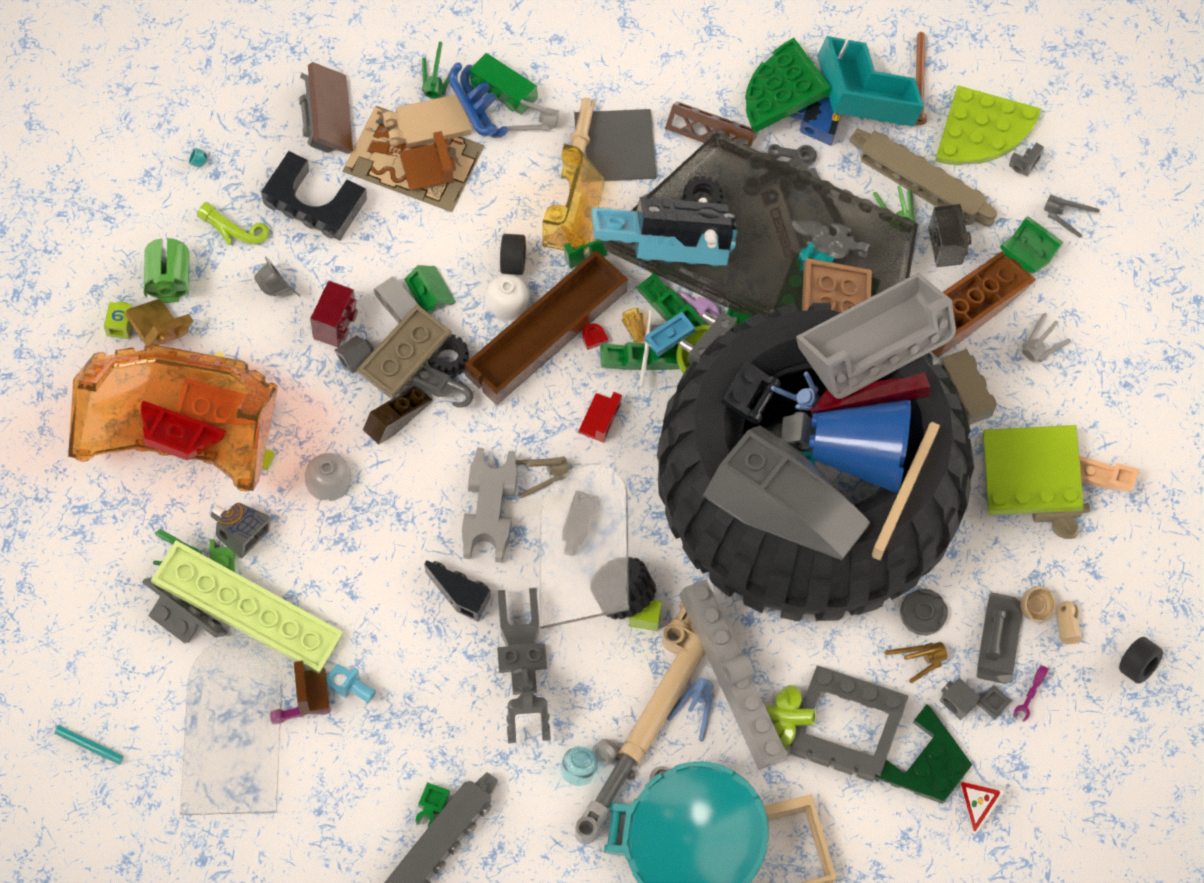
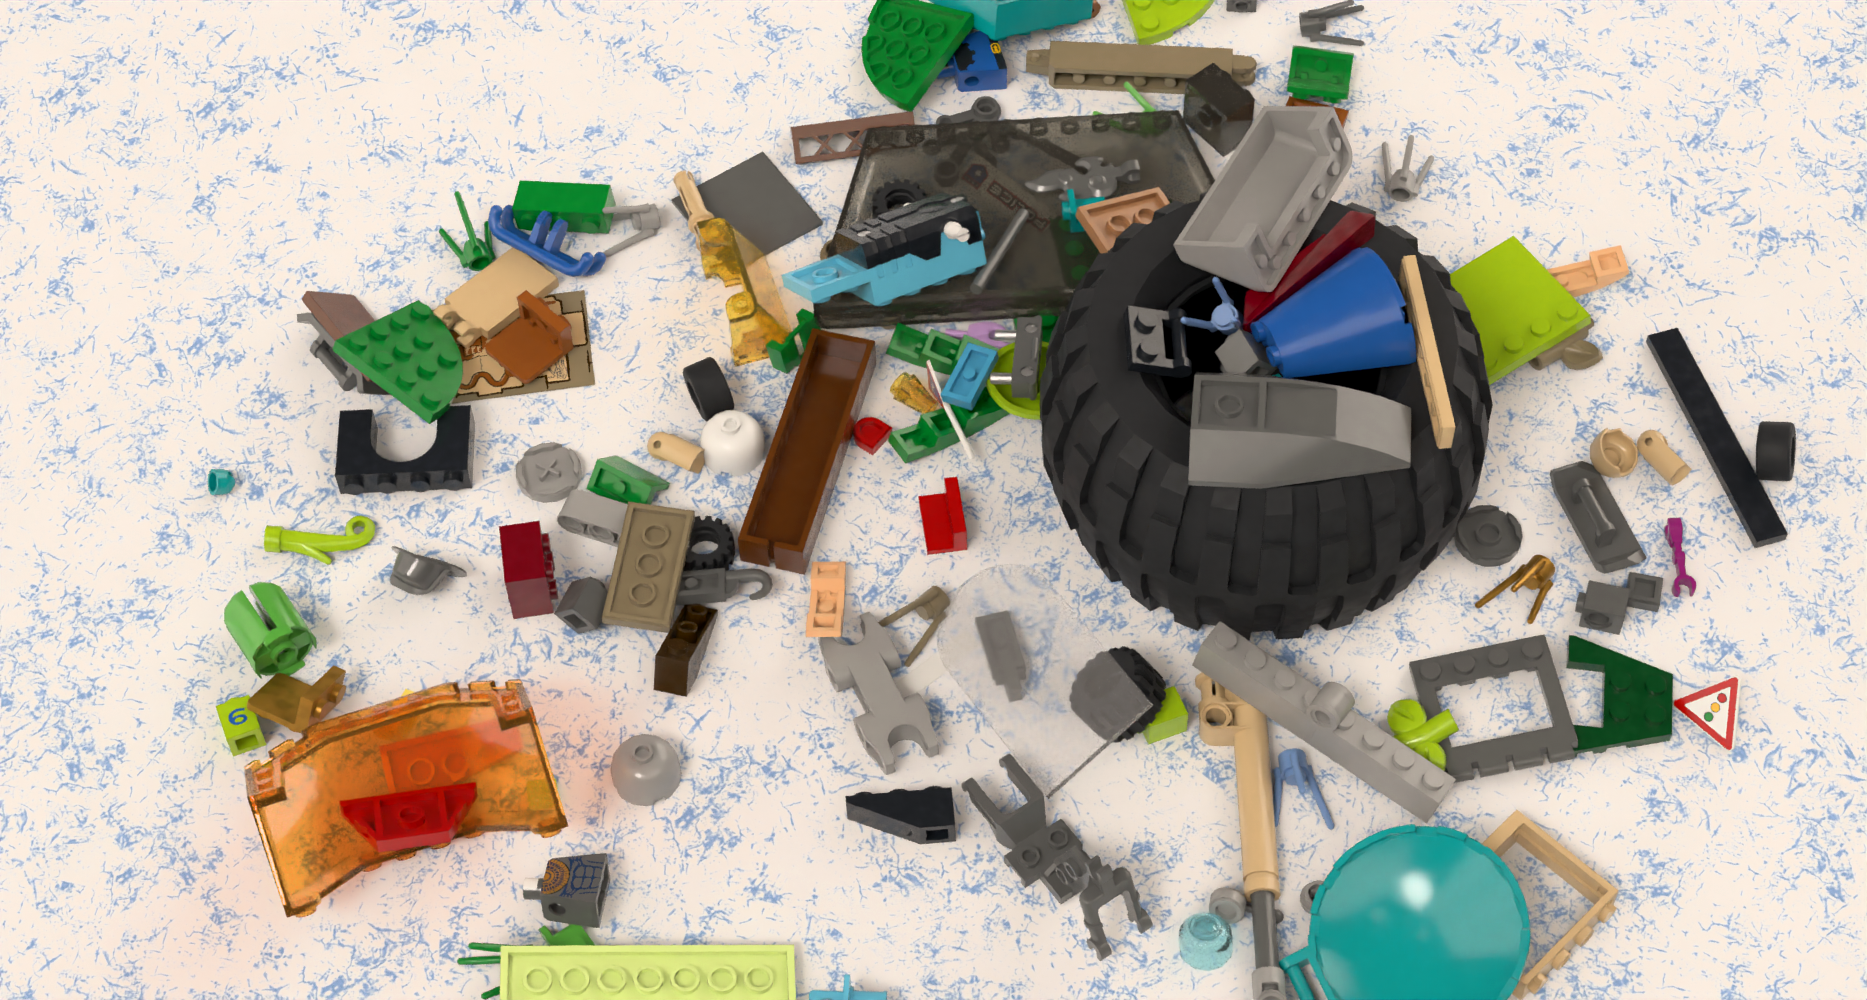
camera: 25 degrees left, 10 degrees down
(347, 138) = (408, 358): none -> green plate
(389, 255) = (548, 472): none -> light grey tile
(470, 284) = (676, 450): none -> tan piece
(495, 432) = (826, 600): none -> light nougat slope
(746, 258) = (999, 251): none -> dark grey bar
(1113, 628) = (1716, 438): none -> black tile

